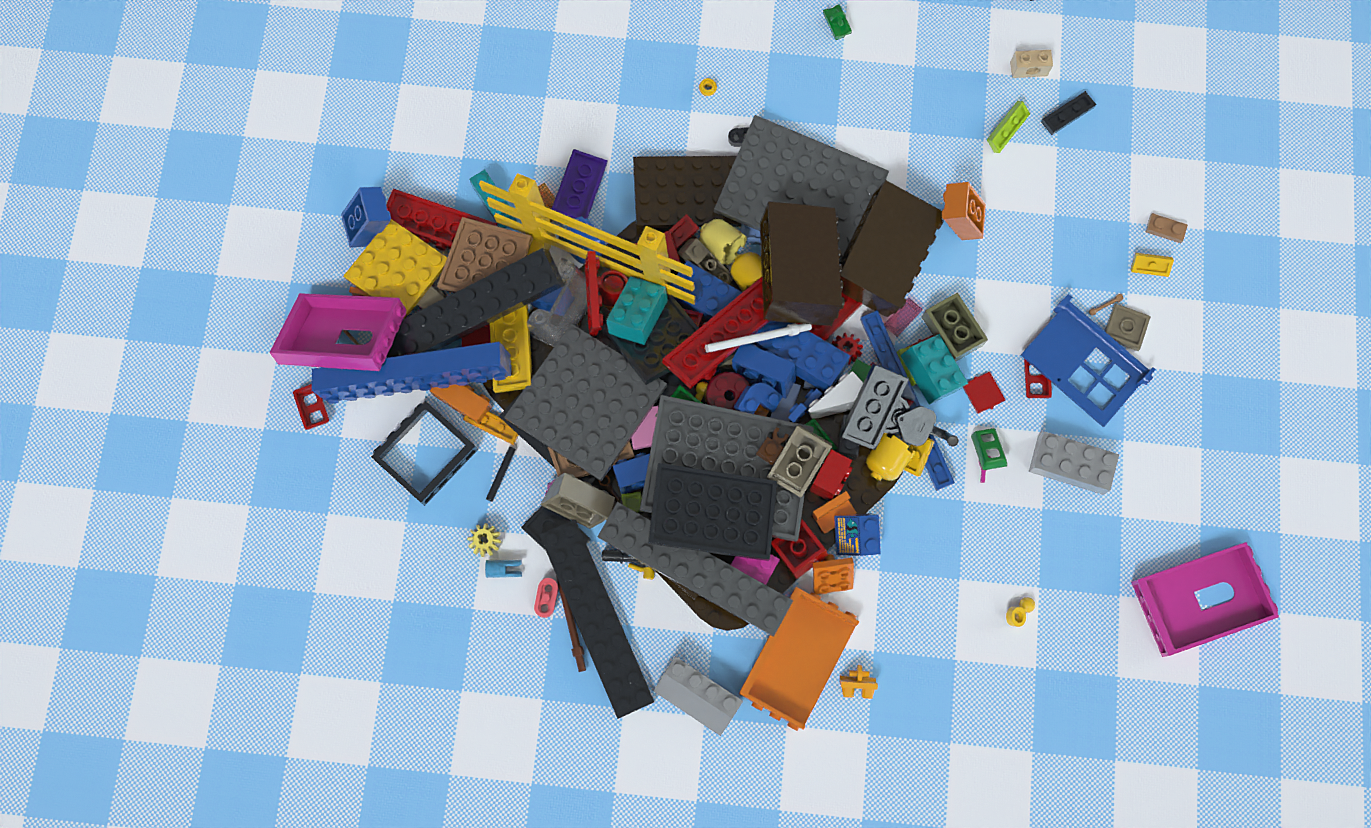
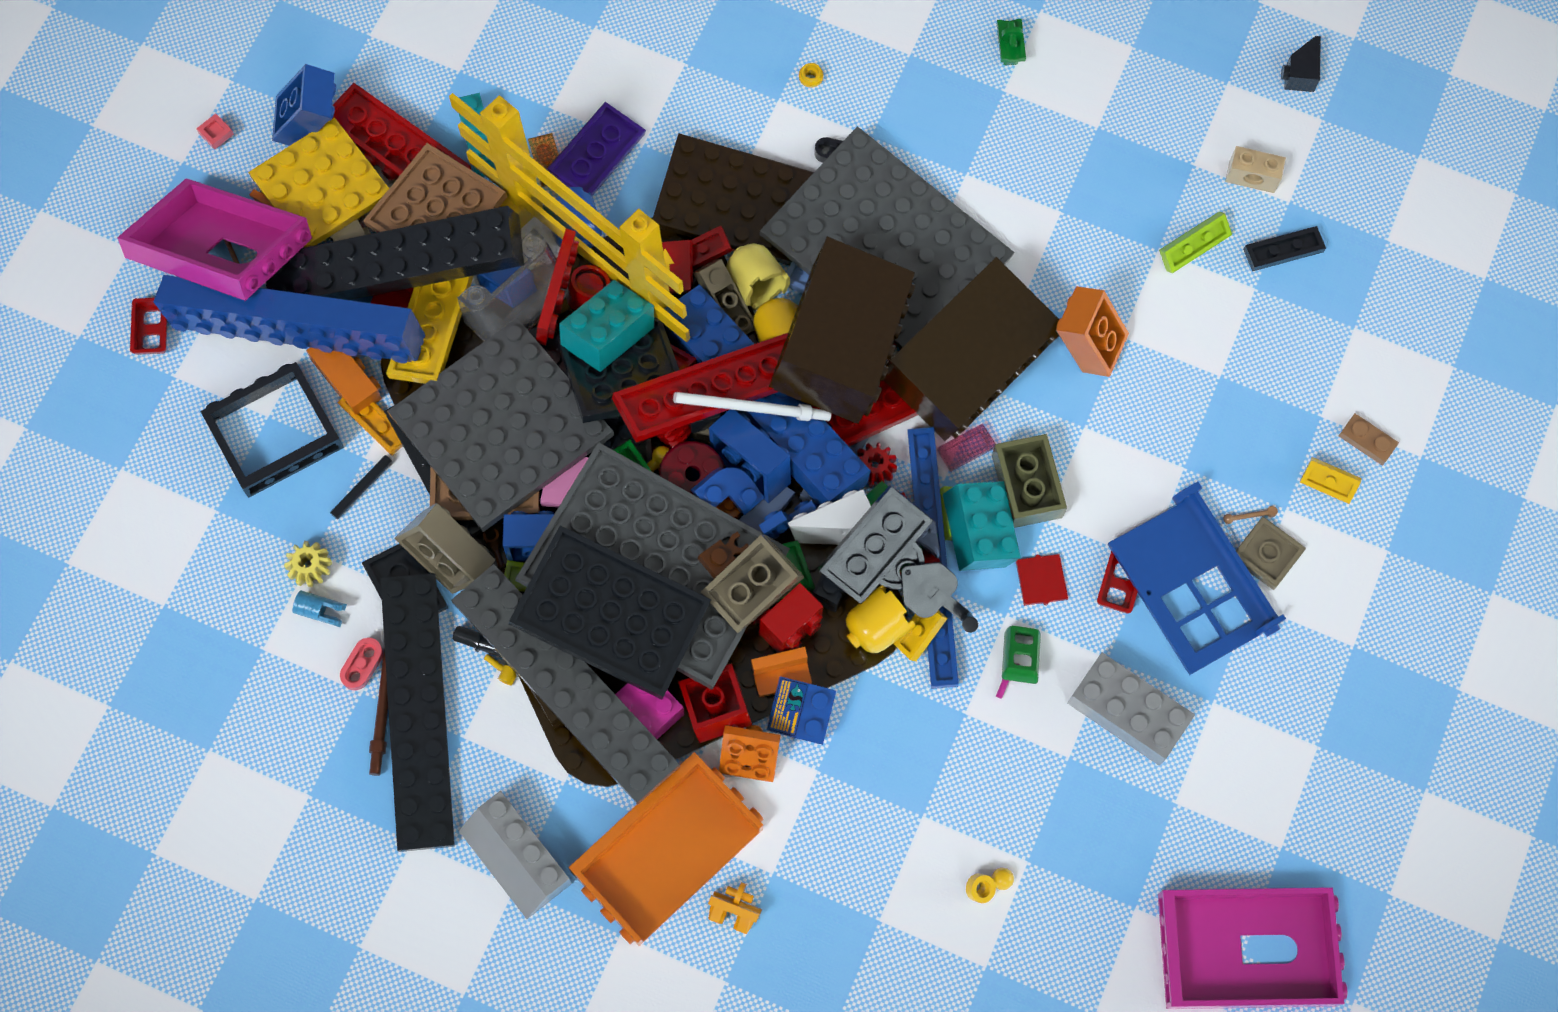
camera: 15 degrees right, 5 degrees down
(306, 252) = (215, 131): none -> coral plate

